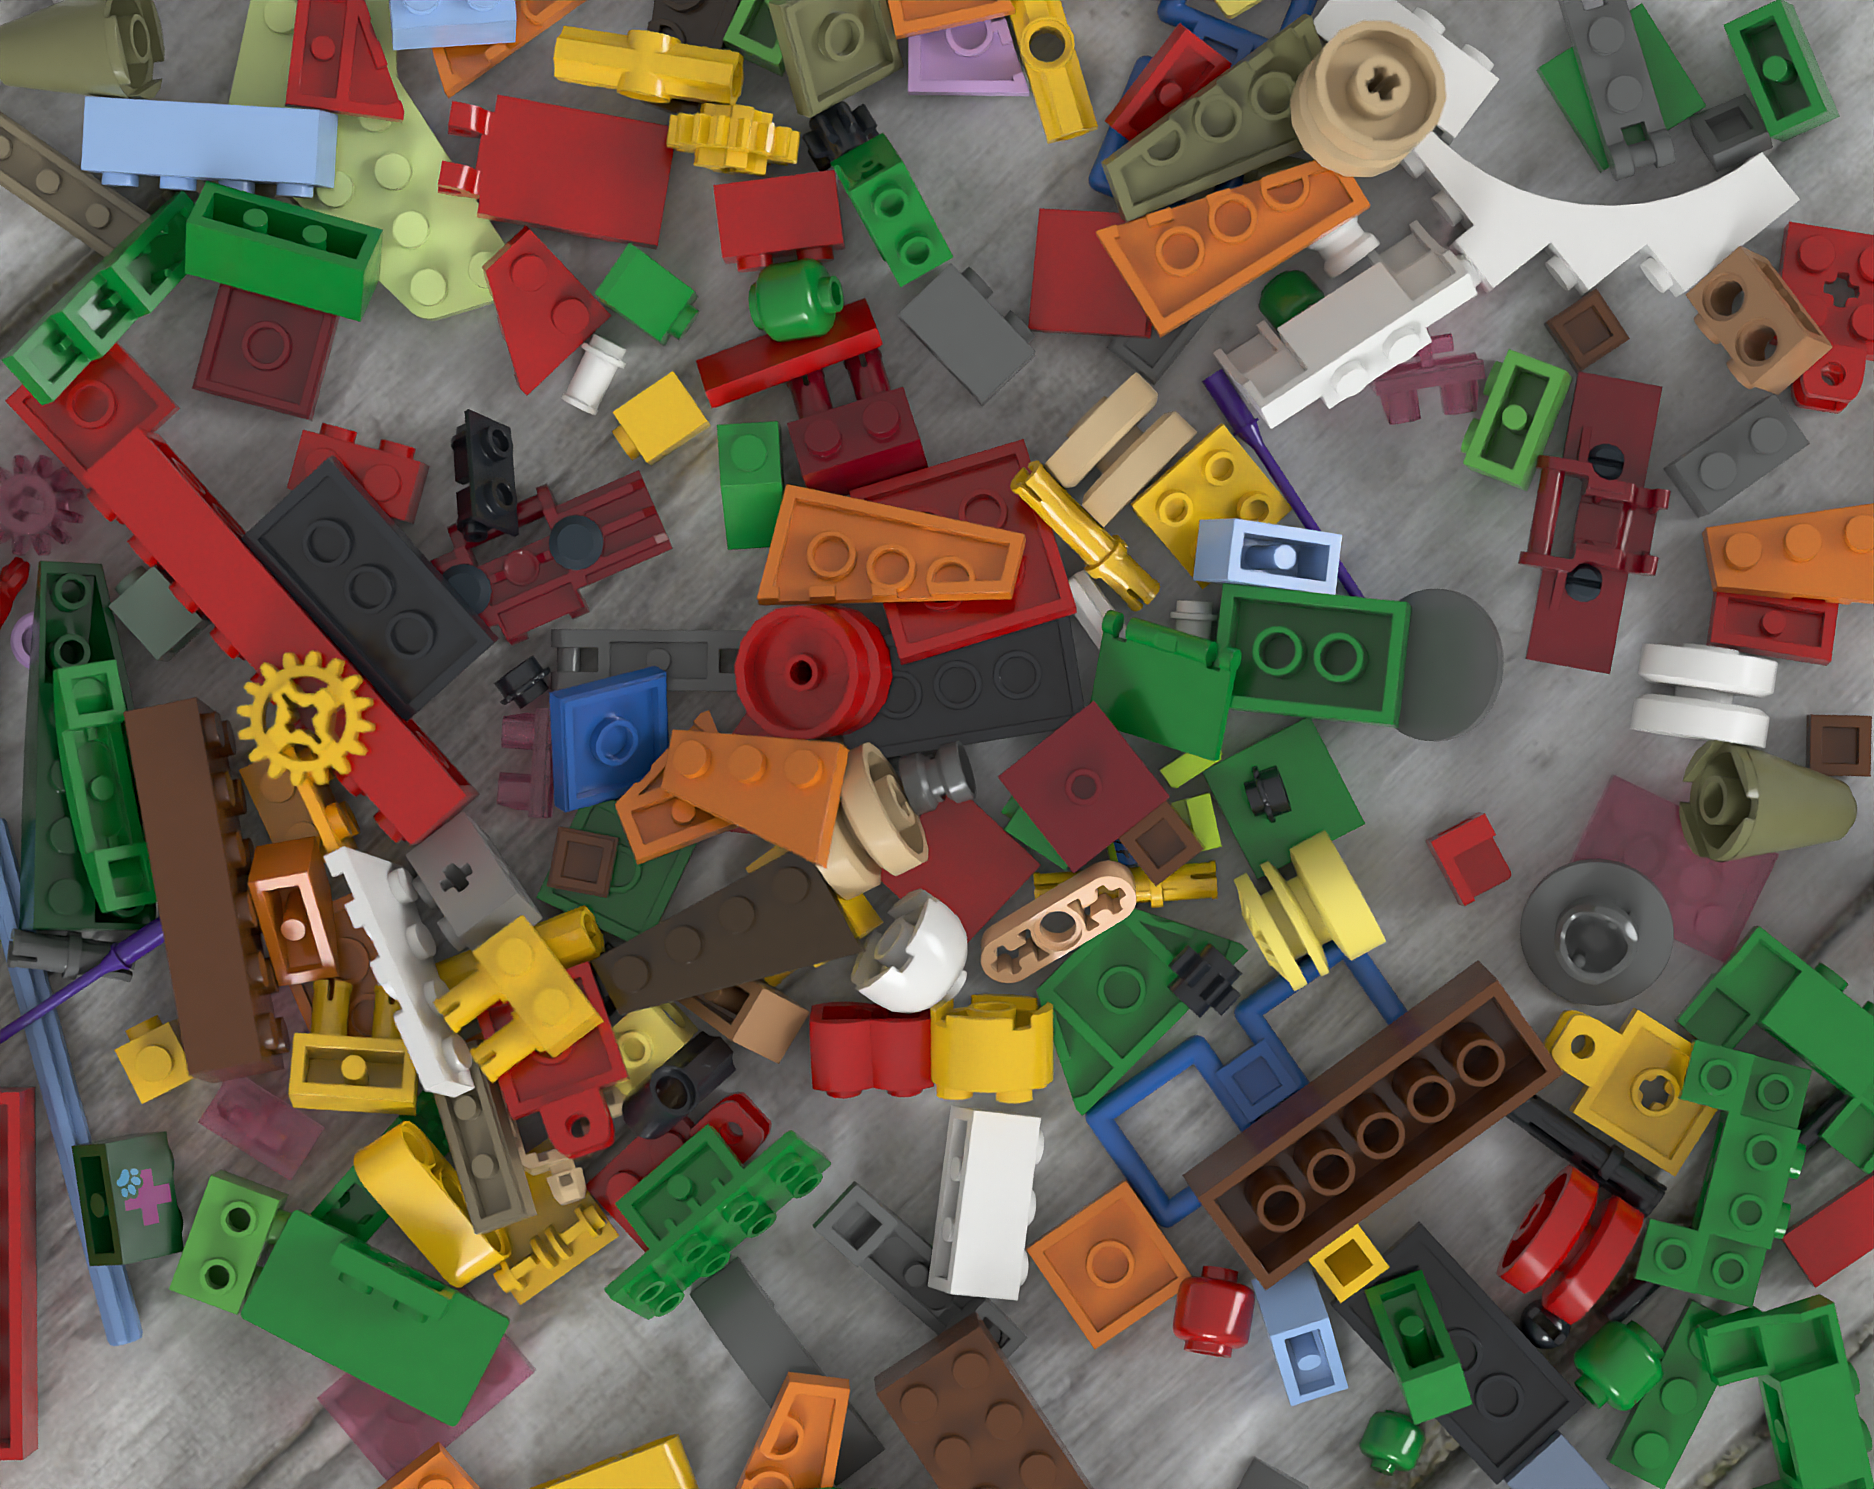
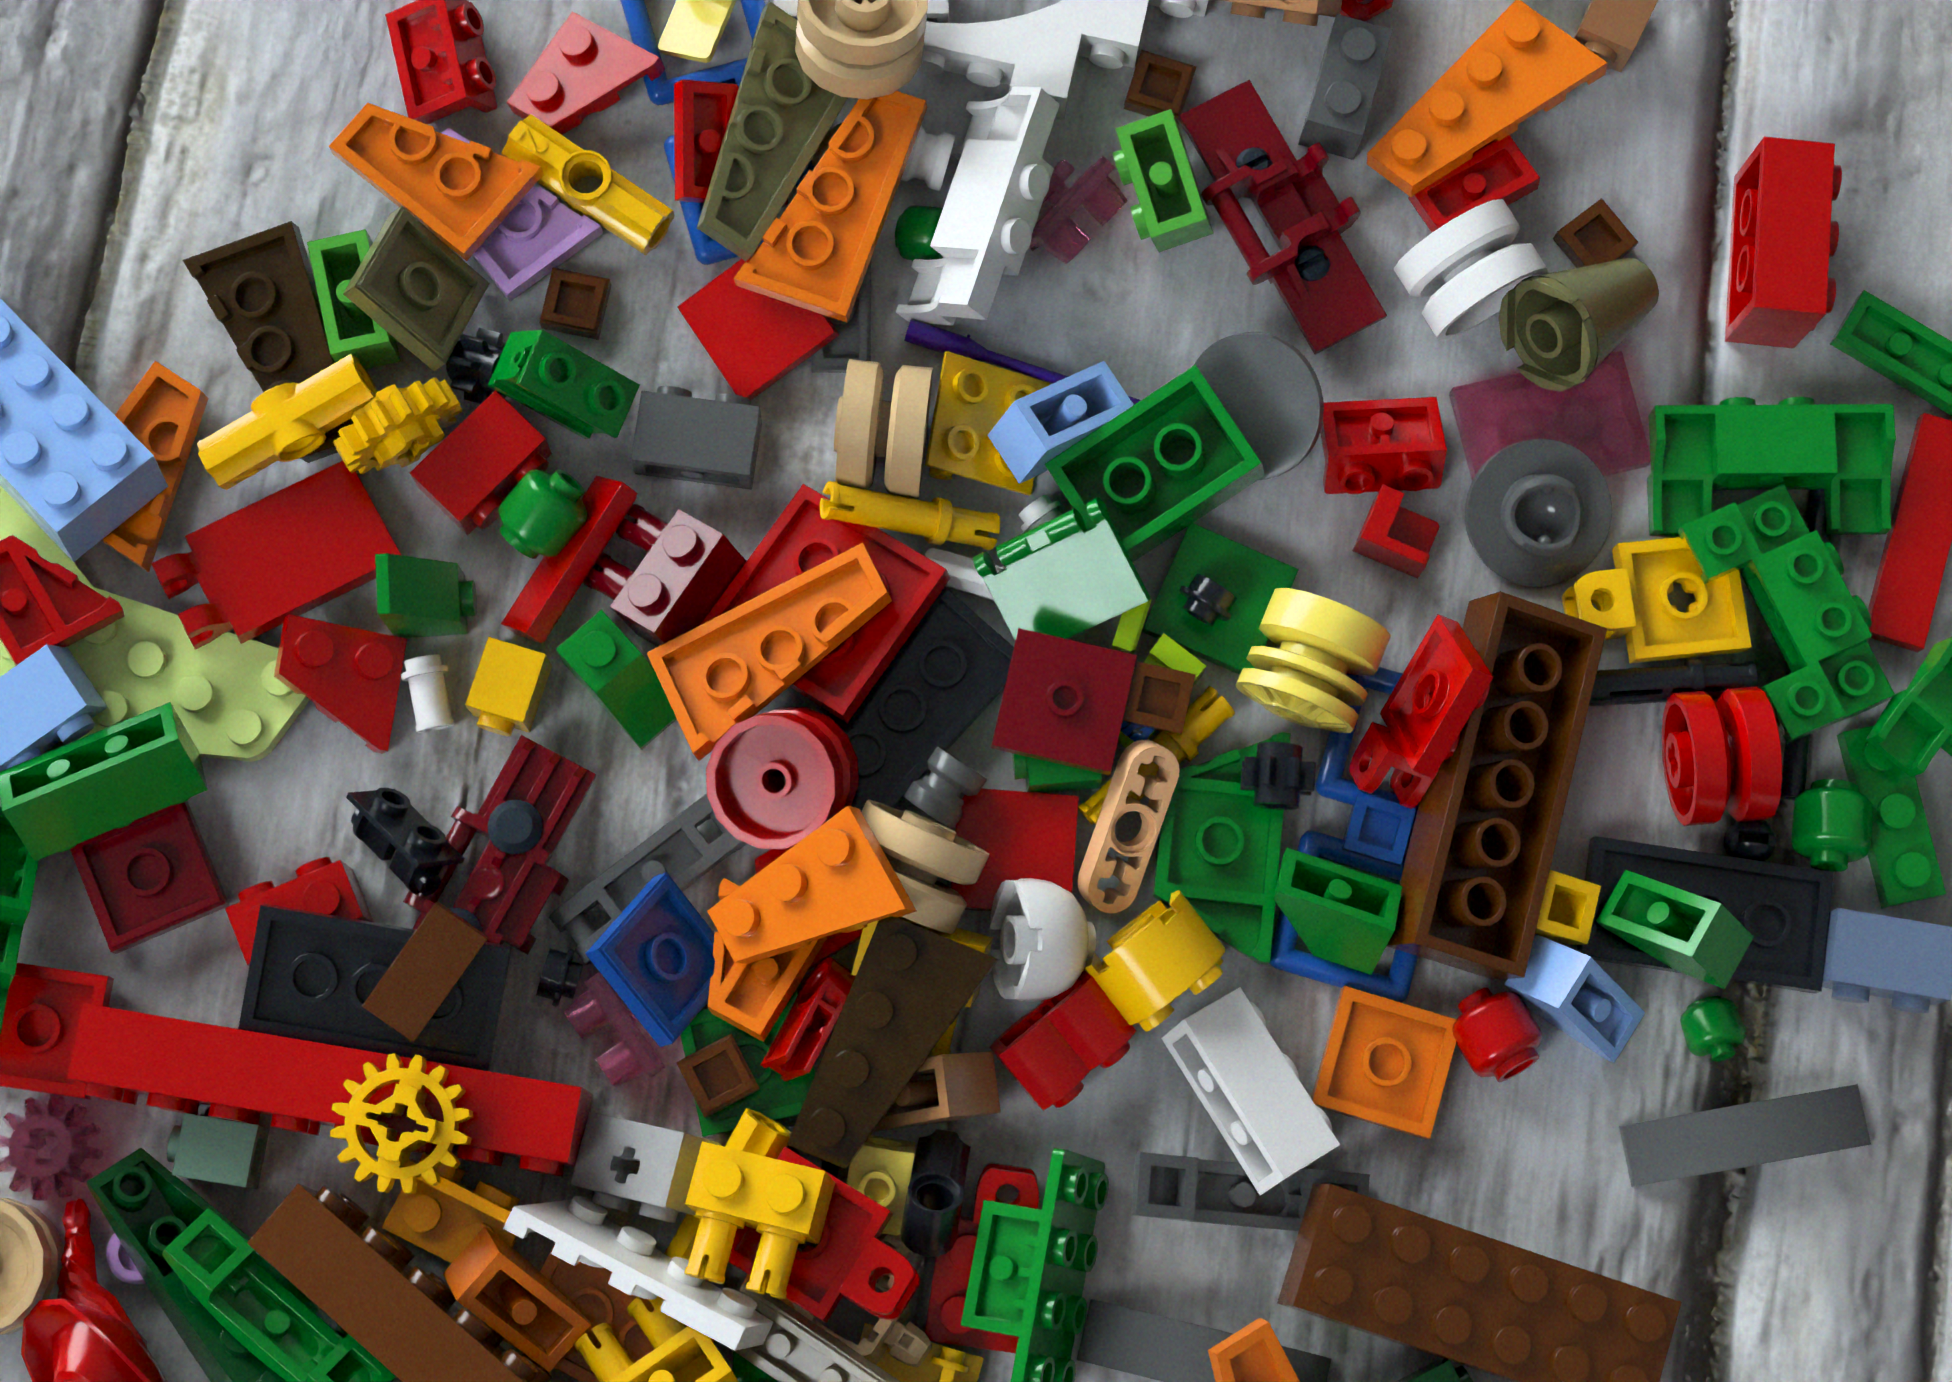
camera: 45 degrees left, 10 degrees down
(415, 610) = (425, 971): none -> reddish brown tile
(686, 877) = (810, 1020): none -> red piece
(960, 138) = (575, 303): none -> reddish brown tile
(1166, 1119) = (1337, 909): none -> green slope
(1363, 1025) = (1423, 714): none -> red plate
(1517, 776) = (1382, 444): none -> red bracket

